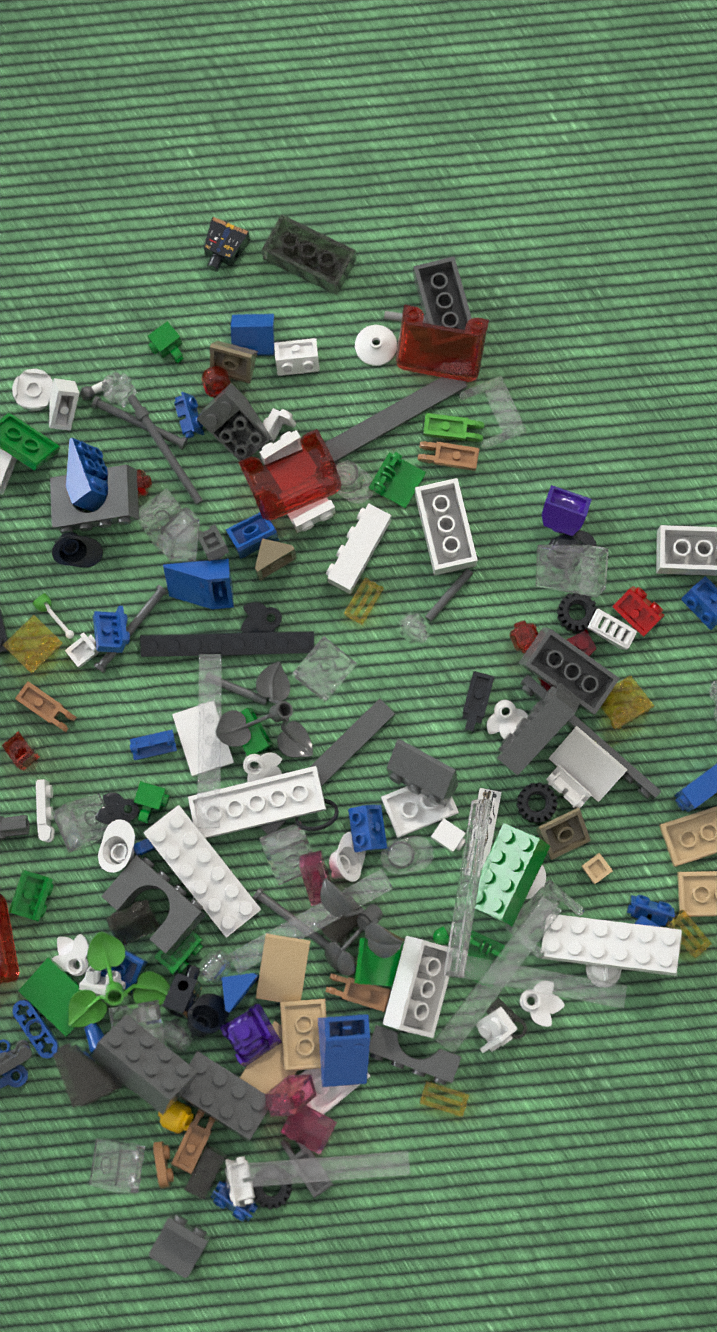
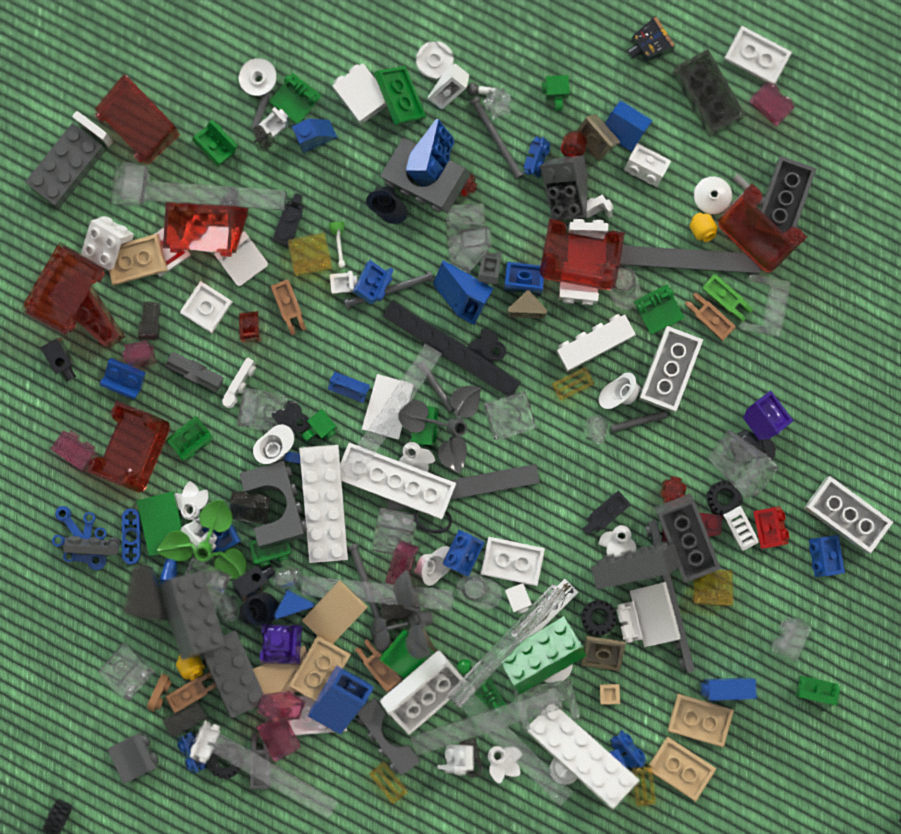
camera: 30 degrees right, 5 degrees up
(143, 415) = (502, 134): dark grey bar -> none
(331, 194) = (757, 55): none -> white tile
(373, 227) = (772, 103): none -> clear pink brick
(387, 378) = (703, 227): none -> yellow head
(413, 576) = (620, 391): none -> white piece
(422, 773) = (528, 541): dark grey slope -> none

